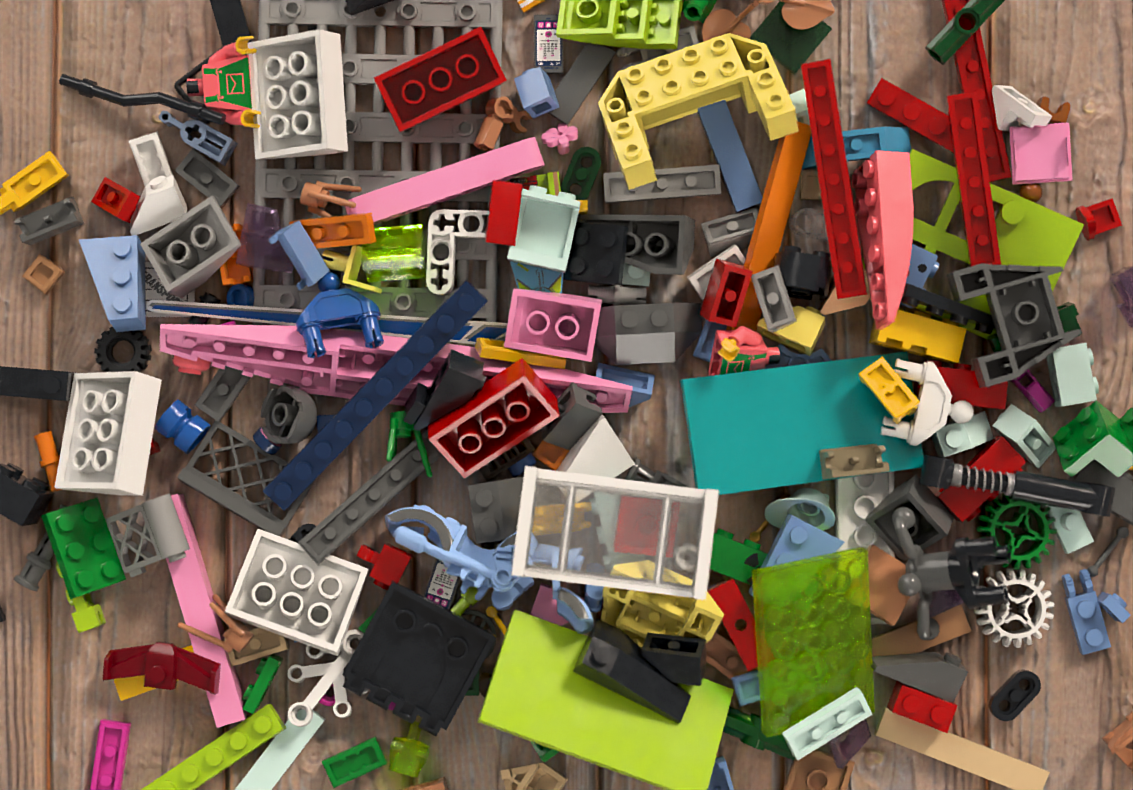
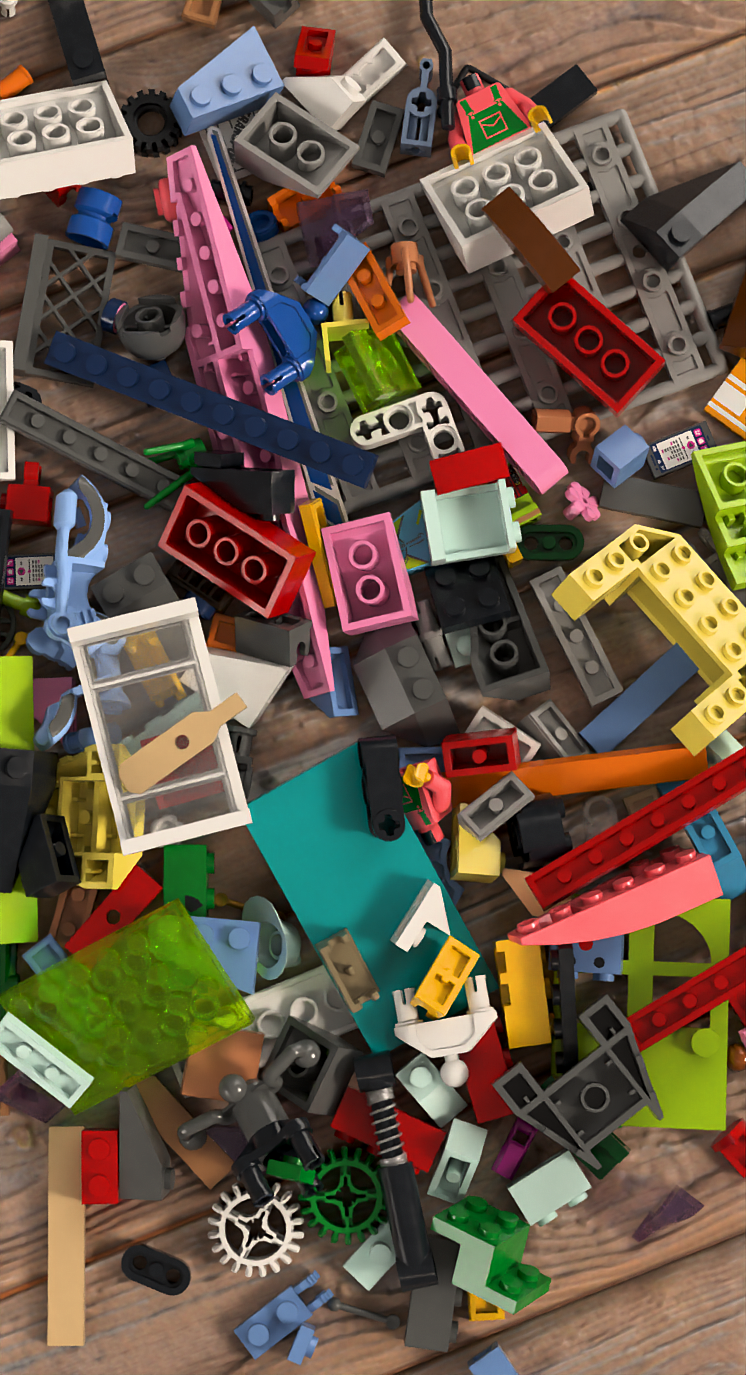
camera: 65 degrees right, 5 degrees down
(345, 92) = (530, 240): none -> reddish brown slope
(637, 538) = (164, 756): none -> tan piece
(725, 379) = (382, 784): none -> black piece
(830, 383) = (425, 908): none -> white slope
(988, 565) = (290, 1169): none -> green plate

